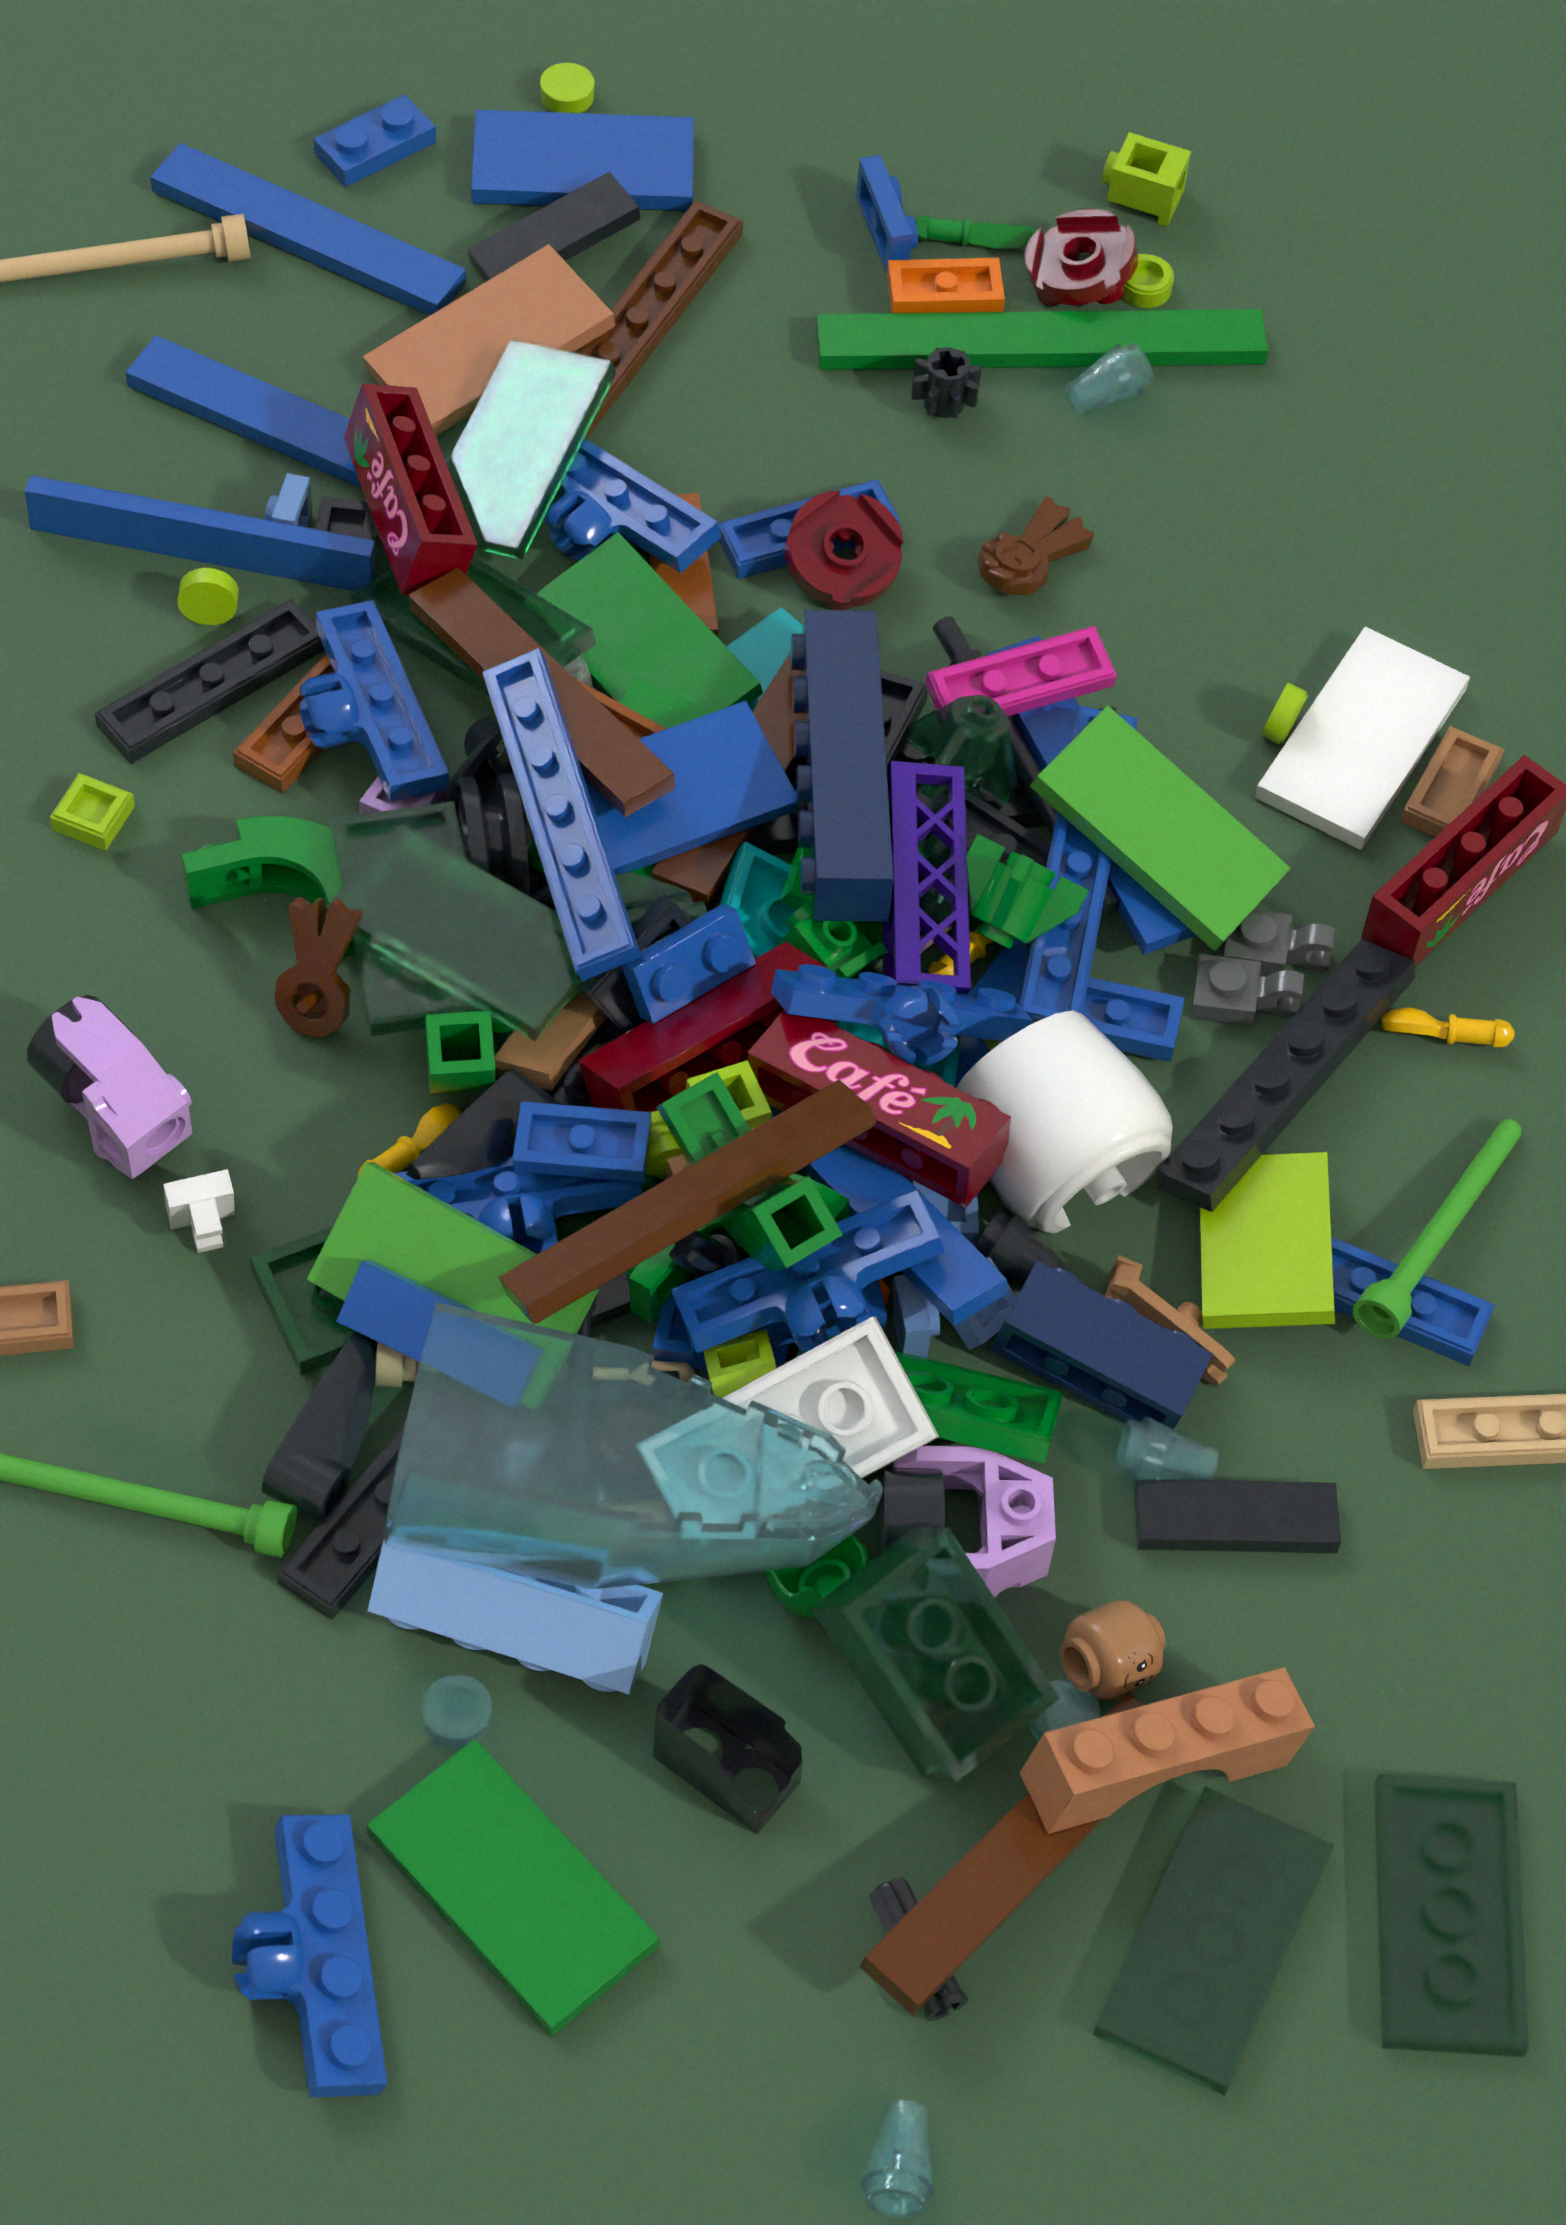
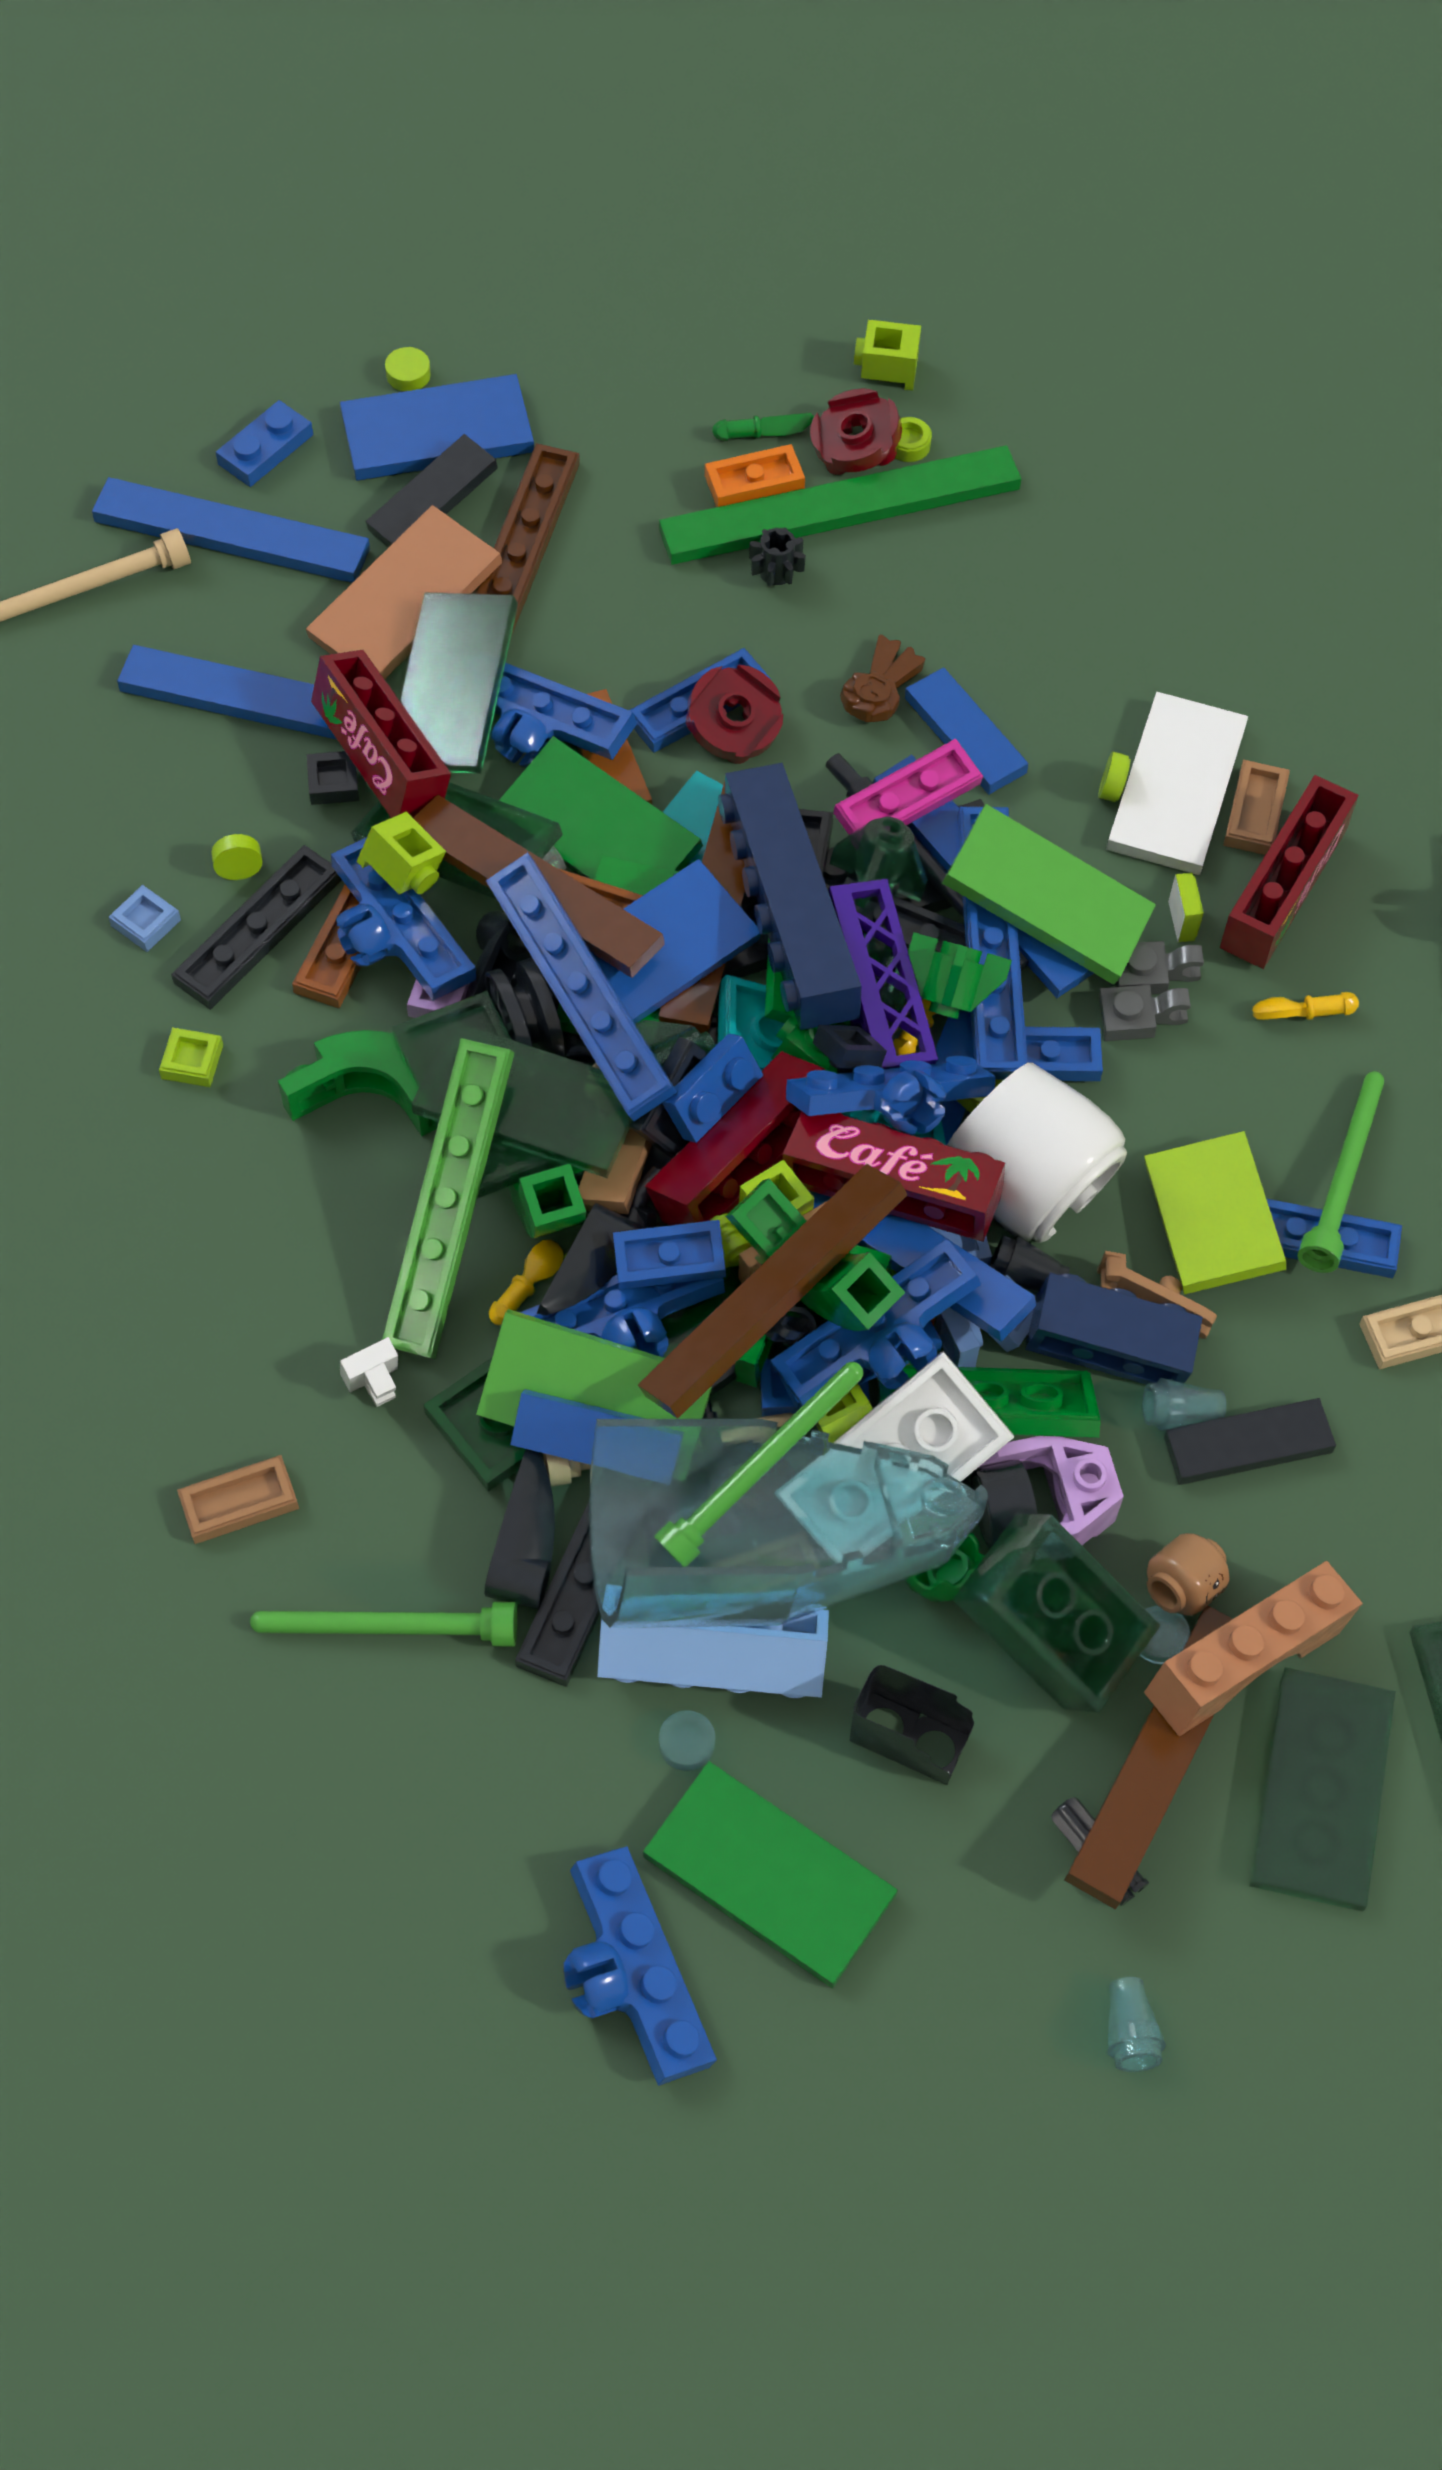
camera: 10 degrees left, 5 degrees up
(82, 645) = (144, 918): none -> medium blue tile
(114, 1082) = (276, 1284): lavender piece -> none
(200, 534) = (216, 806): blue tile -> none
(293, 503) = (283, 775): medium blue plate -> none
(311, 992) = (406, 1168): reddish brown piece -> none
(340, 1025) = (448, 1197): none -> bright green tile
(396, 625) = (402, 854): none -> lime brick
(513, 1464) = (685, 1535): none -> bright green piece
(863, 949) = (848, 1047): none -> black plate
(881, 207) = (693, 430): blue plate -> none
(1112, 378) = (907, 525): clear light blue cone -> none
(1130, 637) = (956, 716): none -> blue tile
(1285, 1075) = (1194, 1074): black plate -> none
(1330, 881) = (1185, 907): none -> lime tile

